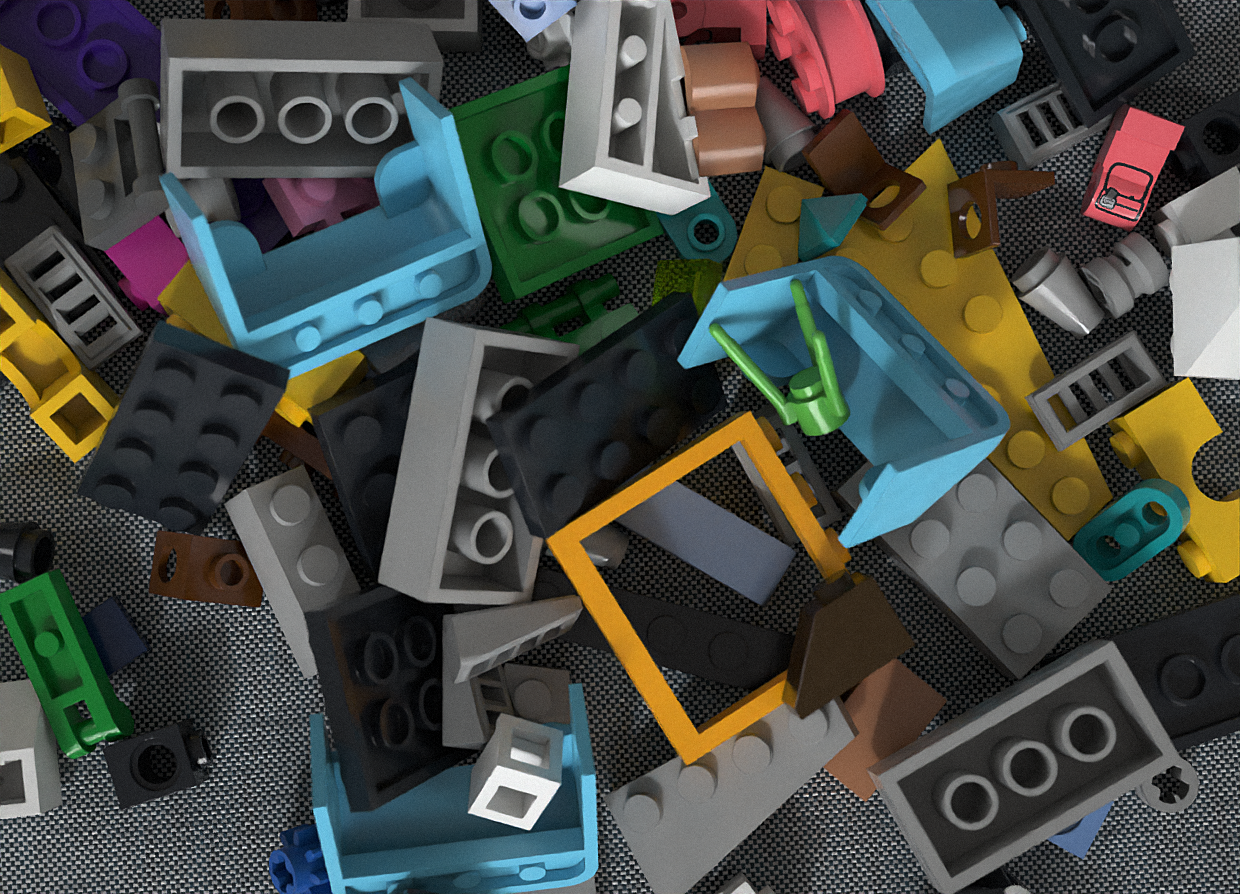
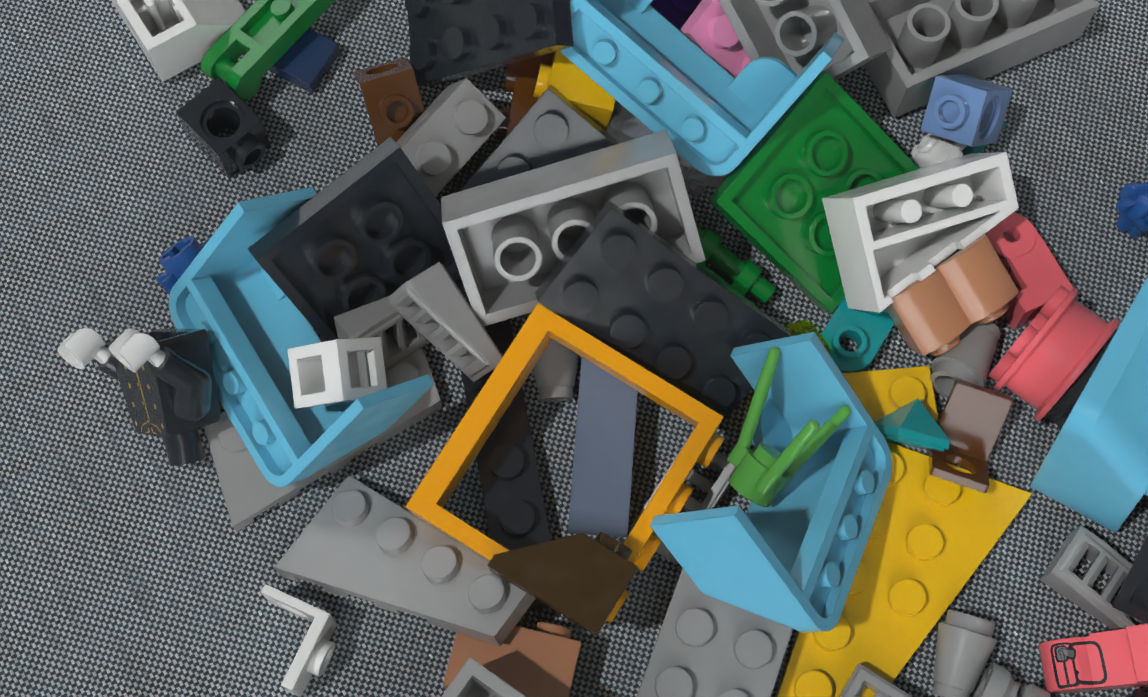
camera: 70 degrees right, 15 degrees down
(992, 181) = (1021, 549): reddish brown bracket -> none

